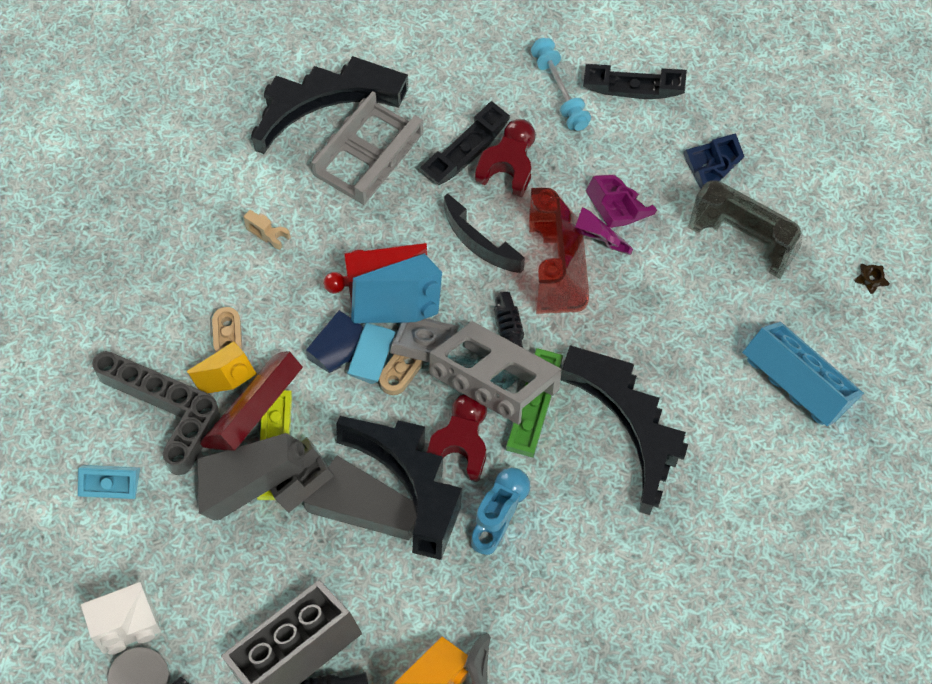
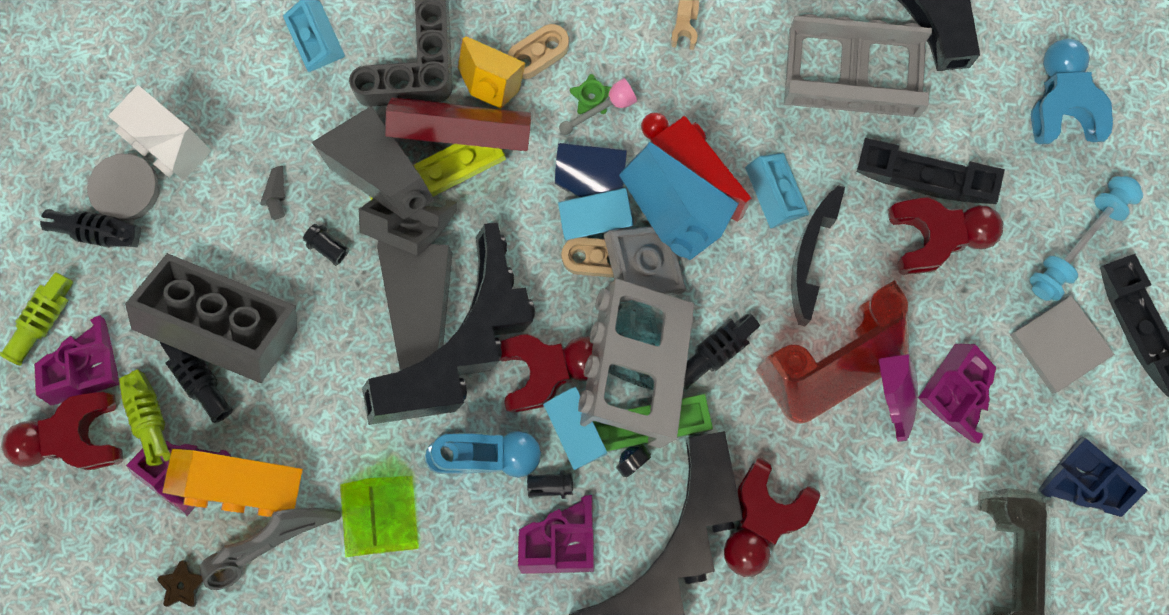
camera: 65 degrees right, 15 degrees up
(215, 566) = (274, 193): none -> dark grey bar
(277, 311) = (582, 92): none -> bright green plate
(279, 546) = (325, 244): none -> black pin
(294, 297) = (620, 96): none -> hinge
(412, 234) = (776, 189): none -> medium azure slope
(463, 43) = (1070, 93): none -> dark azure piece
(502, 607) = (379, 516): none -> clear neon green slope
(509, 437) = (579, 442): none -> medium azure slope
(547, 471) = (550, 485): none -> black pin
(557, 415) = (632, 459): none -> black tile
(583, 502) = (545, 544): none -> magenta slope
(619, 133) = (1062, 344): none -> light grey tile
(642, 351) = (764, 521): none -> dark red piece

